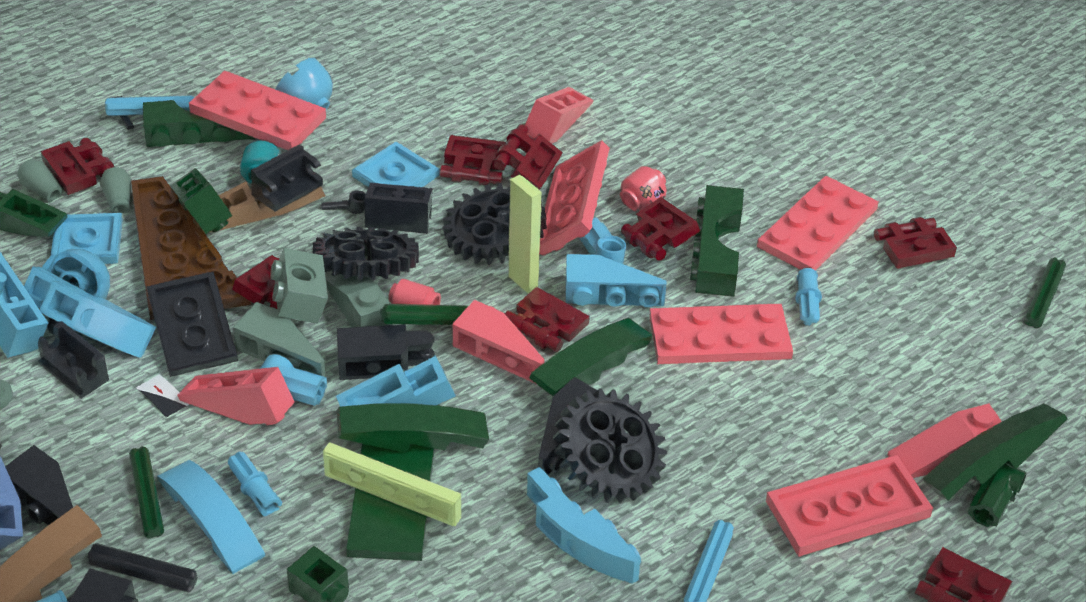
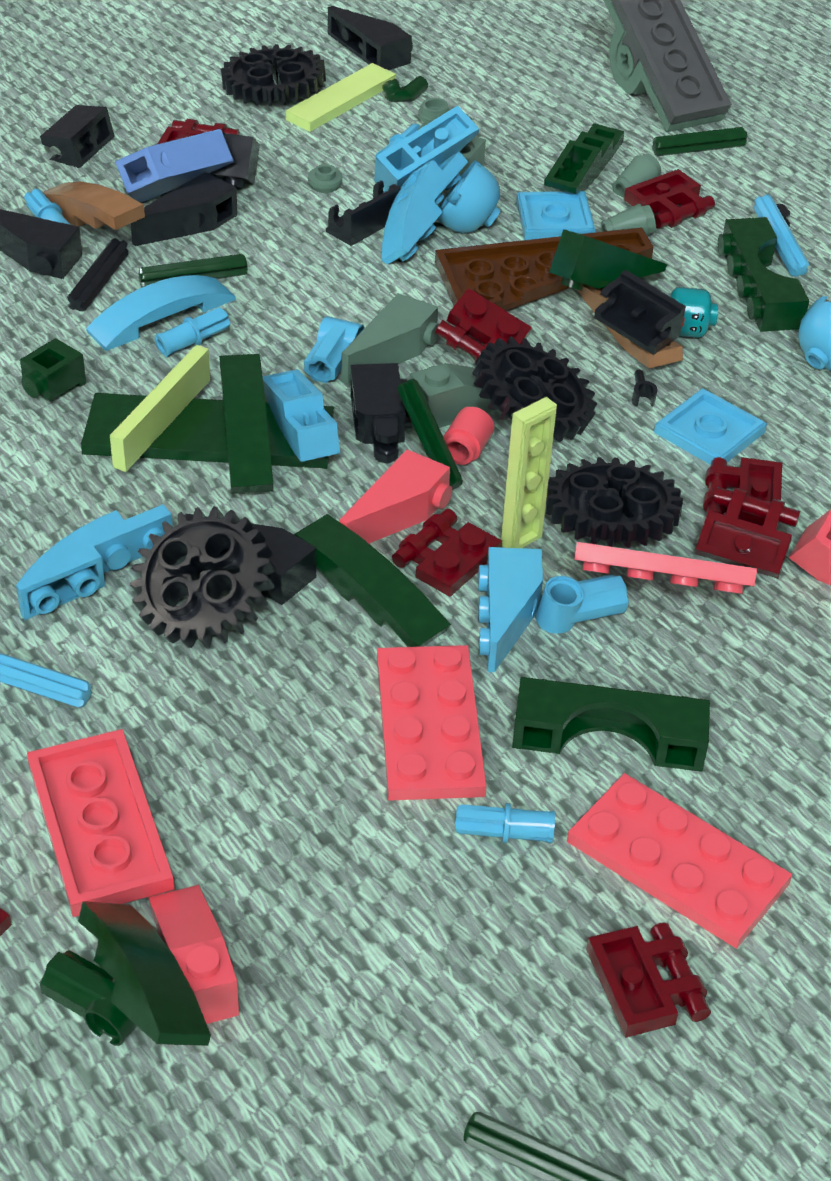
camera: 90 degrees right, 0 degrees up
(162, 395) = (327, 278): sticker -> none
(192, 324) = (422, 274): black tile -> none
(244, 395) = (303, 312): coral slope -> none
(257, 110) = (765, 292): coral plate -> none
(299, 285) = (439, 338): sand green brick -> none
(398, 207) = (632, 418): black hinge -> none
(642, 188) = (710, 649): coral head -> none
(667, 225) = (620, 656): dark red plate -> none

